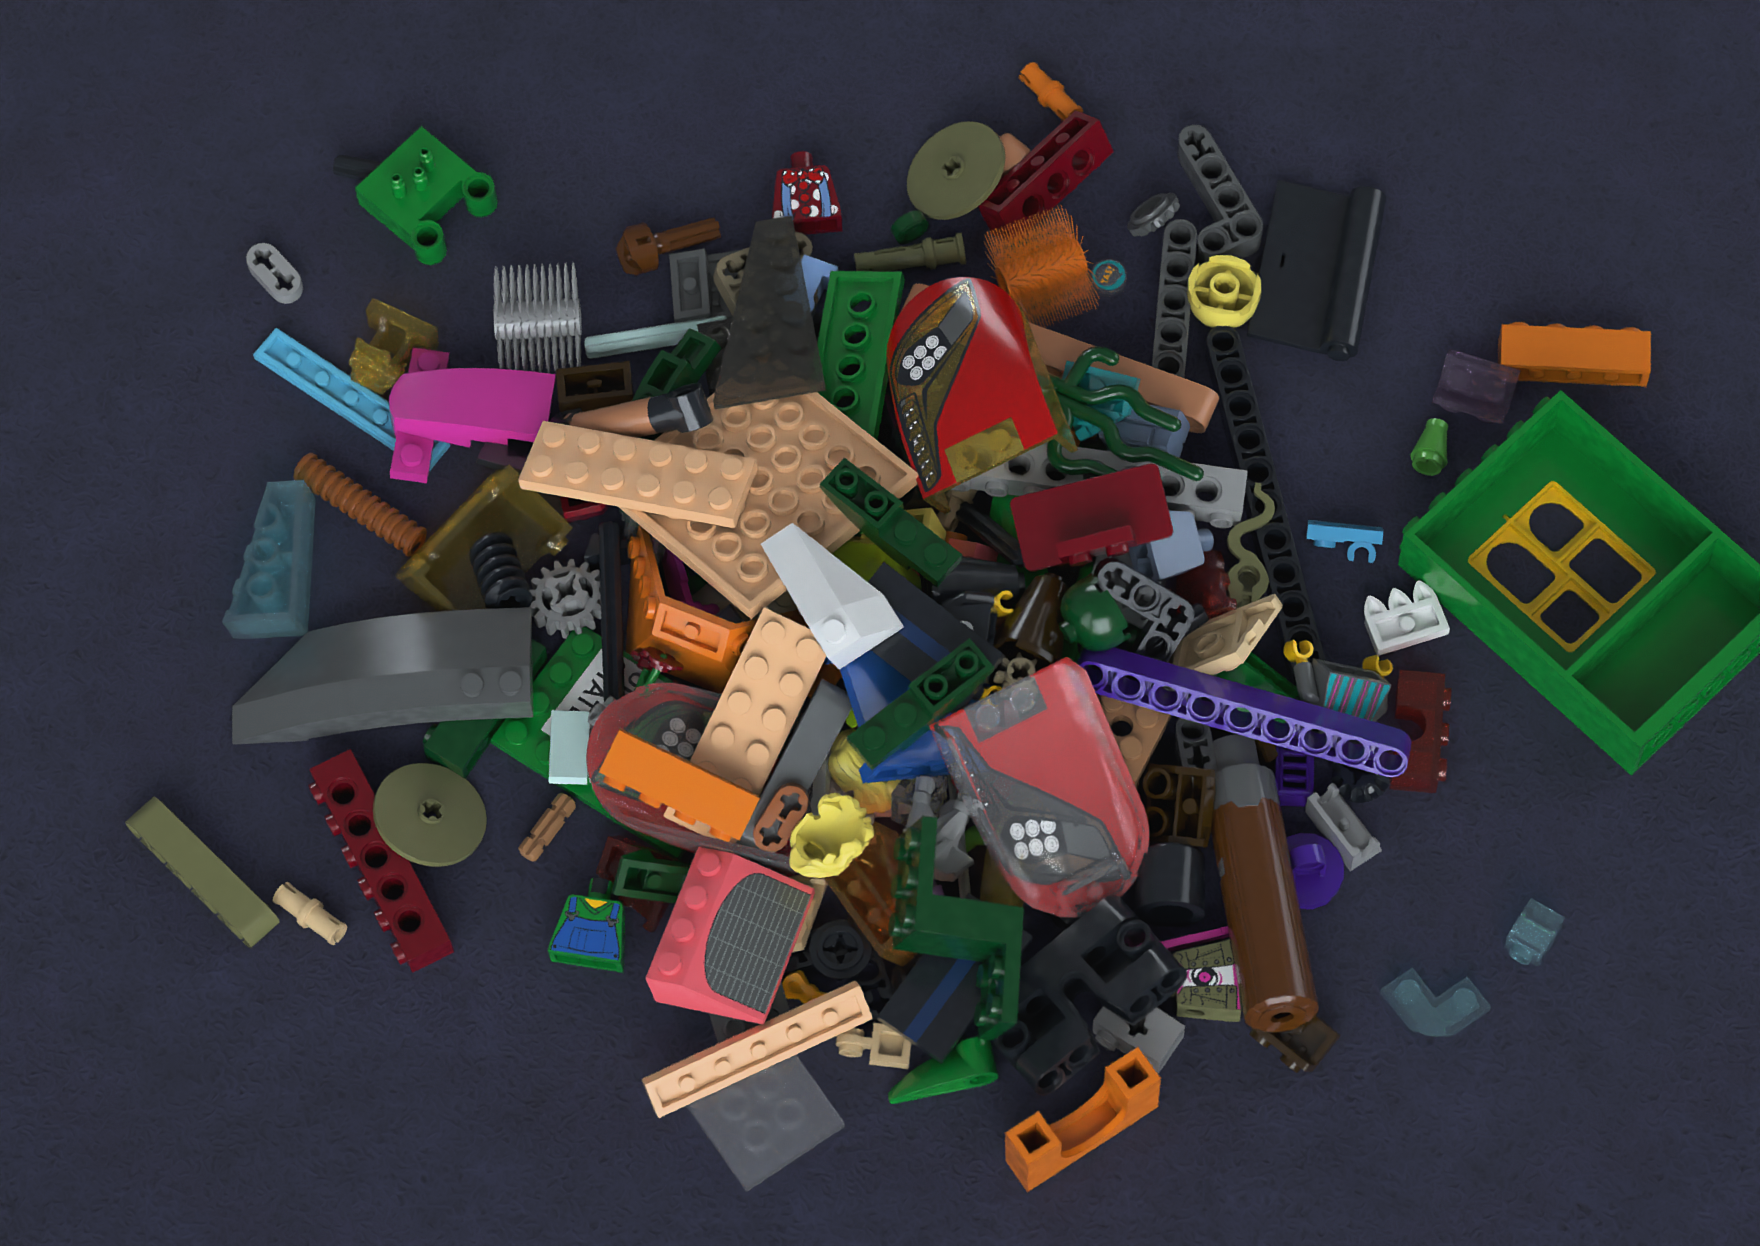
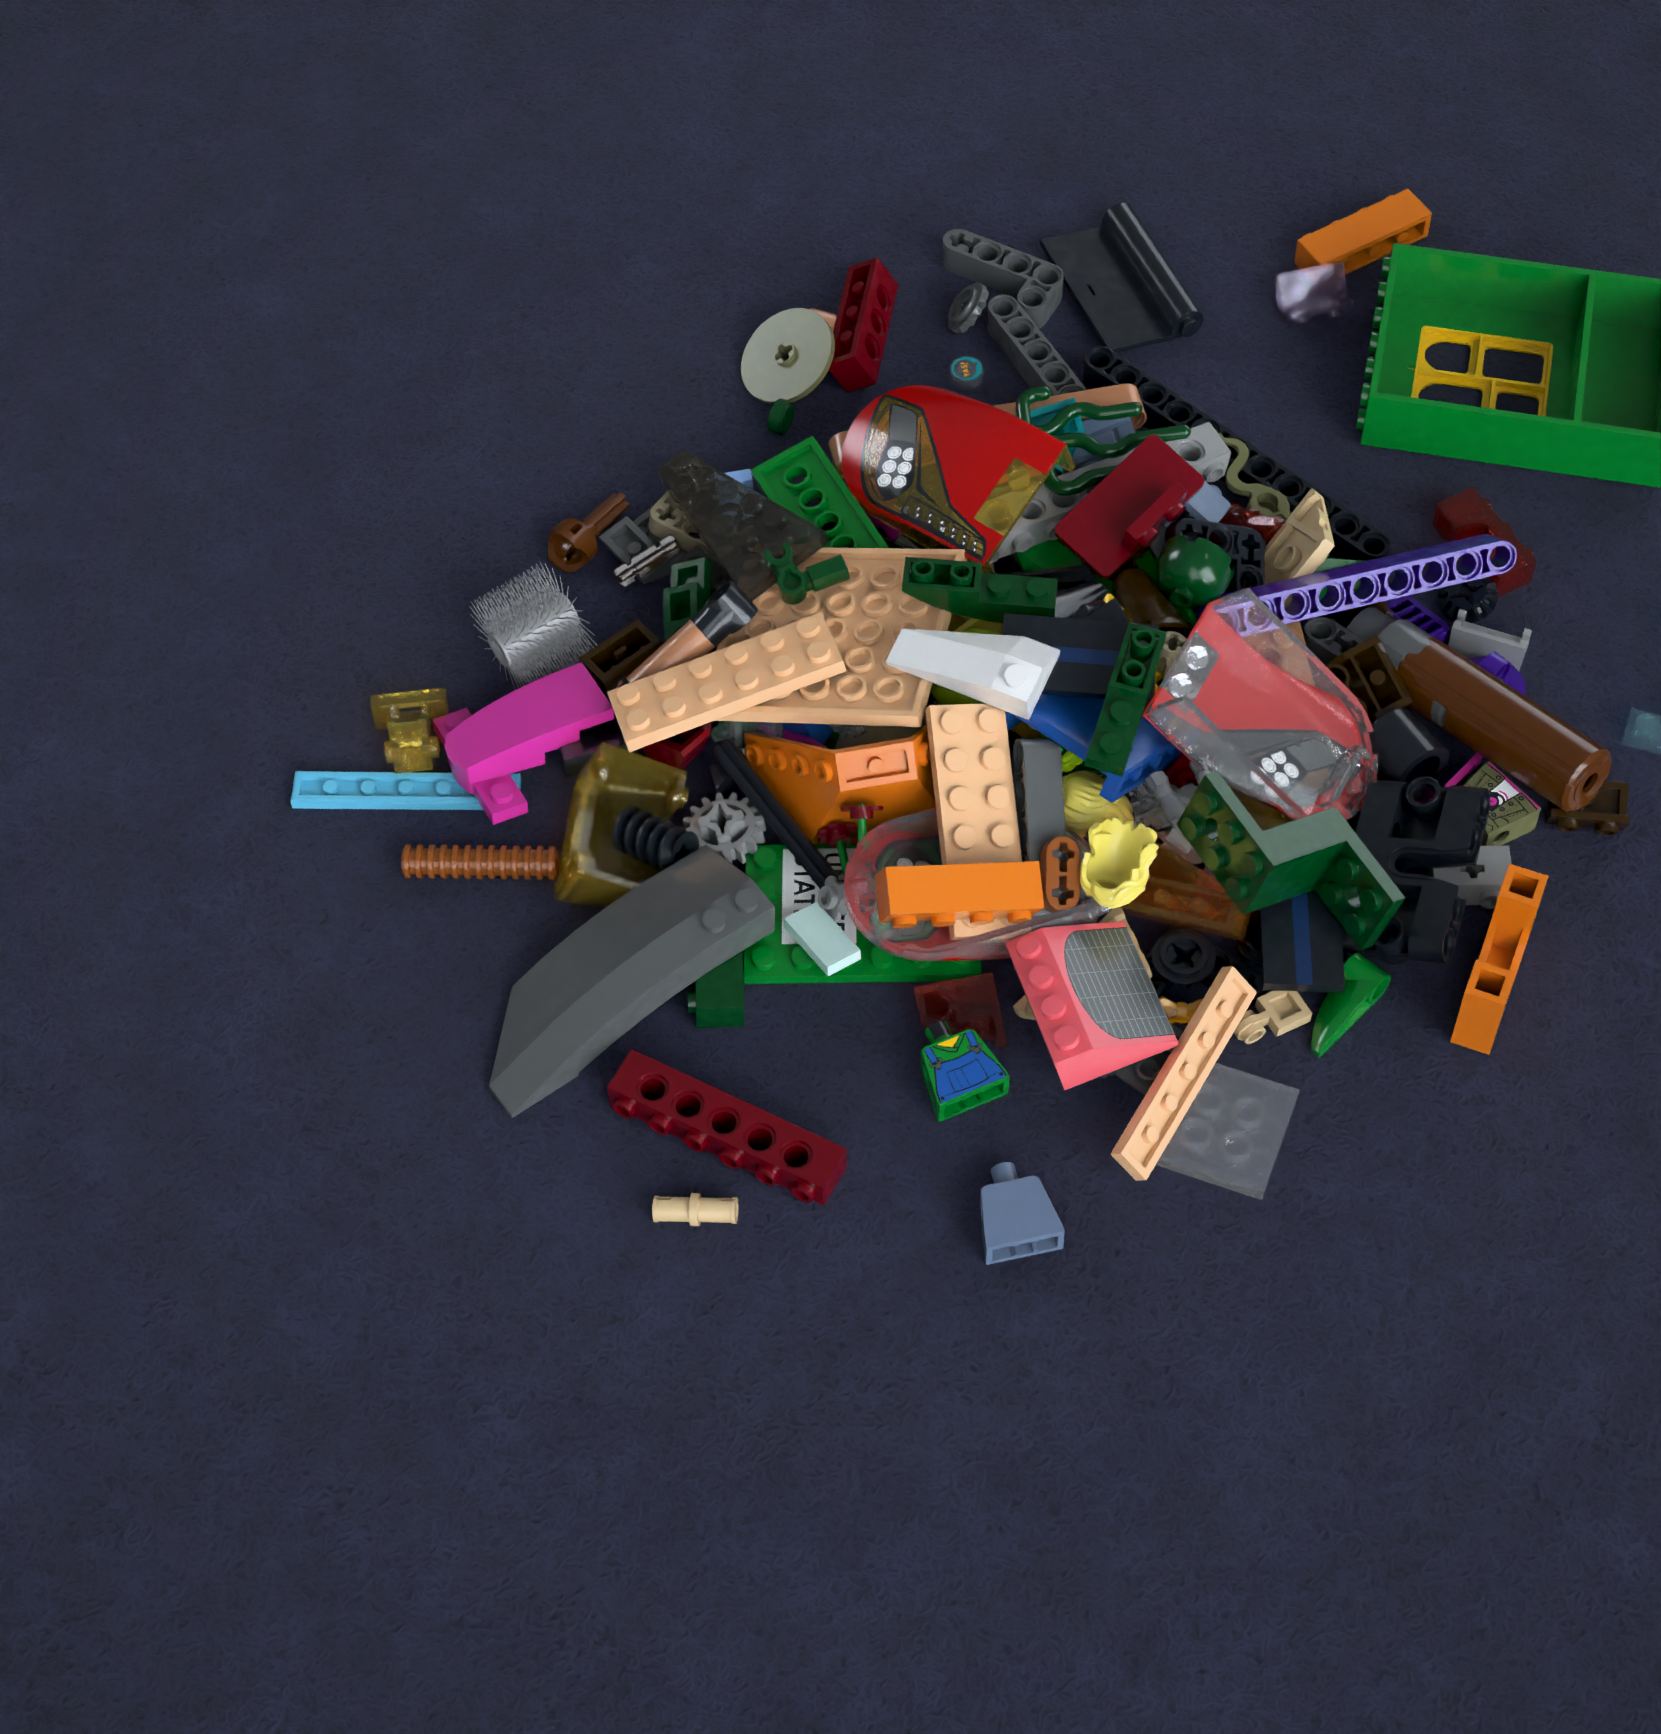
camera: 35 degrees left, 10 degrees down
(203, 871) = (569, 1233): olive beam -> none
(268, 278) = (260, 732): light grey beam -> none
(277, 569) = (451, 956): clear light blue wedge -> none
(417, 190) = (342, 603): green piece -> none
(431, 840) = (741, 1064): olive piece -> none
(542, 1079) = (1017, 1217): none -> sand blue torso
(547, 827) = (849, 1017): medium nougat axle -> none
(641, 338) = (627, 608): light aqua axle -> none
(649, 878) = (985, 993): dark green slope -> none
(686, 304) = (646, 560): none -> dark brown axle
(757, 418) = (795, 584): none -> dark green bar
(807, 196) = (680, 430): torso -> none
(928, 254) = (809, 425): olive pin -> none
(1043, 269) = (928, 367): orange piece -> none
(1049, 92) = (812, 273): orange pin -> none
(1223, 291) = (1072, 325): light yellow cylinder -> none
(1328, 533) = (1321, 436): dark azure plate -> none
(1341, 686) = (1406, 533): torso -> none
(1405, 621) = (1402, 475): white plate -> none
(1431, 449) = (1316, 354): bright green cone -> none

